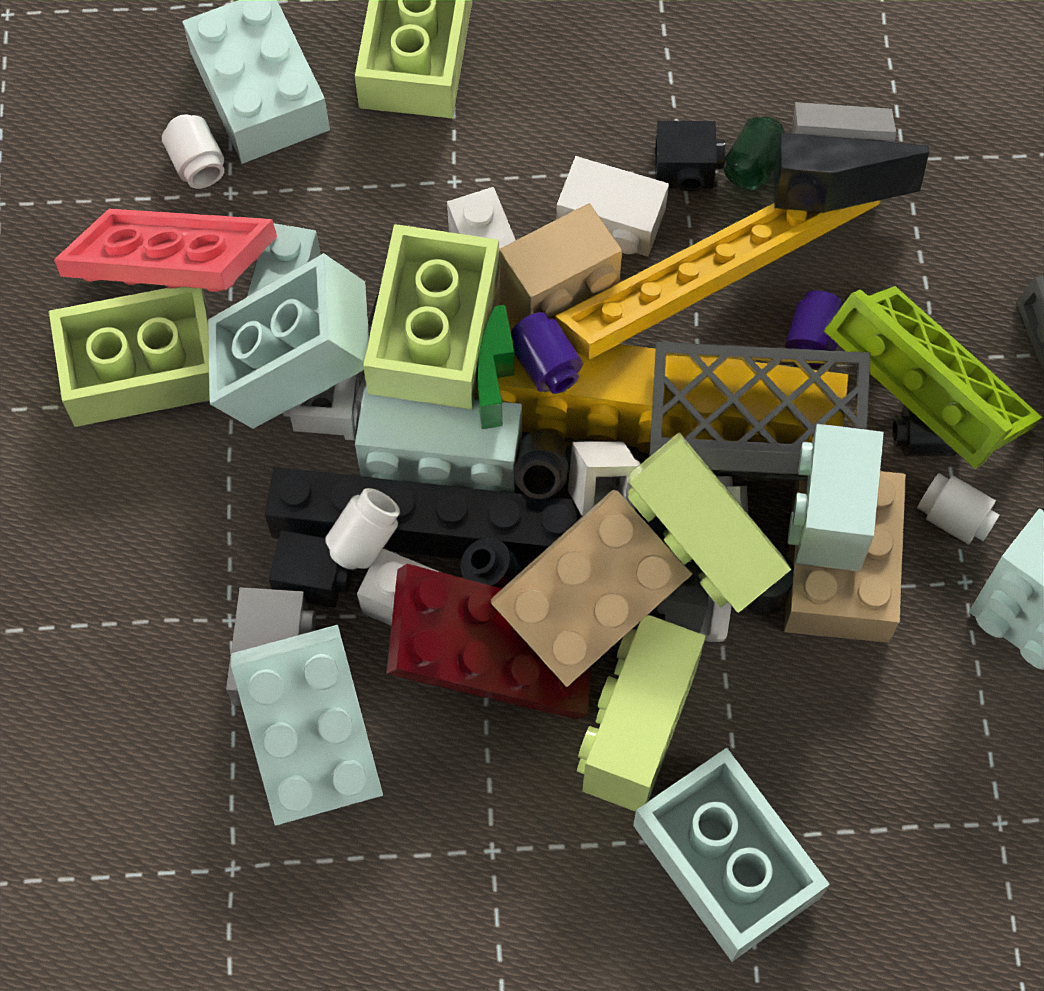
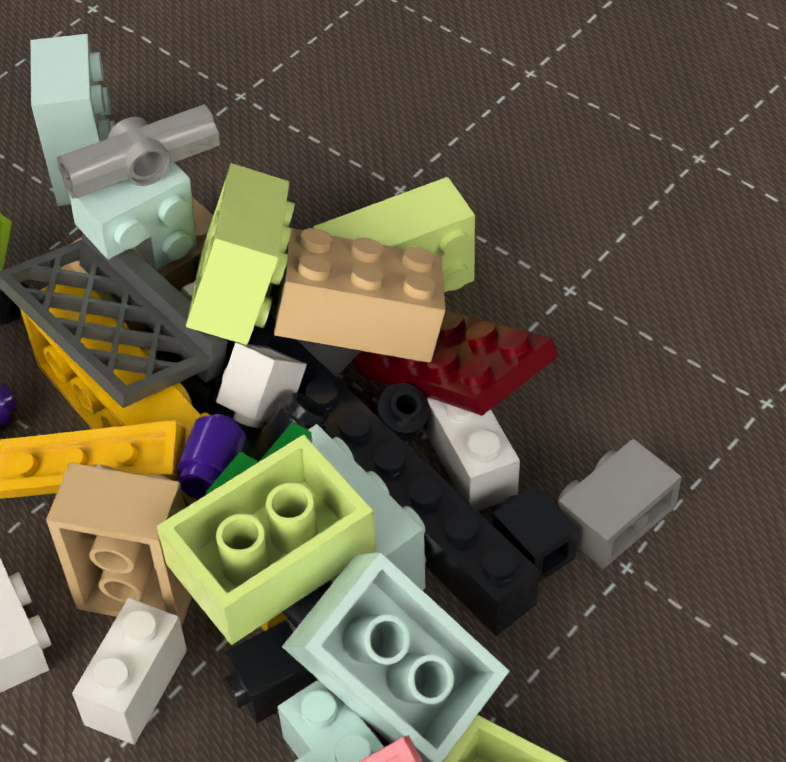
camera: 135 degrees left, 15 degrees down
(305, 724) = (640, 399): light aqua brick -> none
(363, 529) = (475, 478): white brick -> none
(729, 854) = (425, 140): light aqua brick -> none
(857, 494) = (138, 151): none -> light grey piece
(958, 508) = (42, 229): white brick -> none

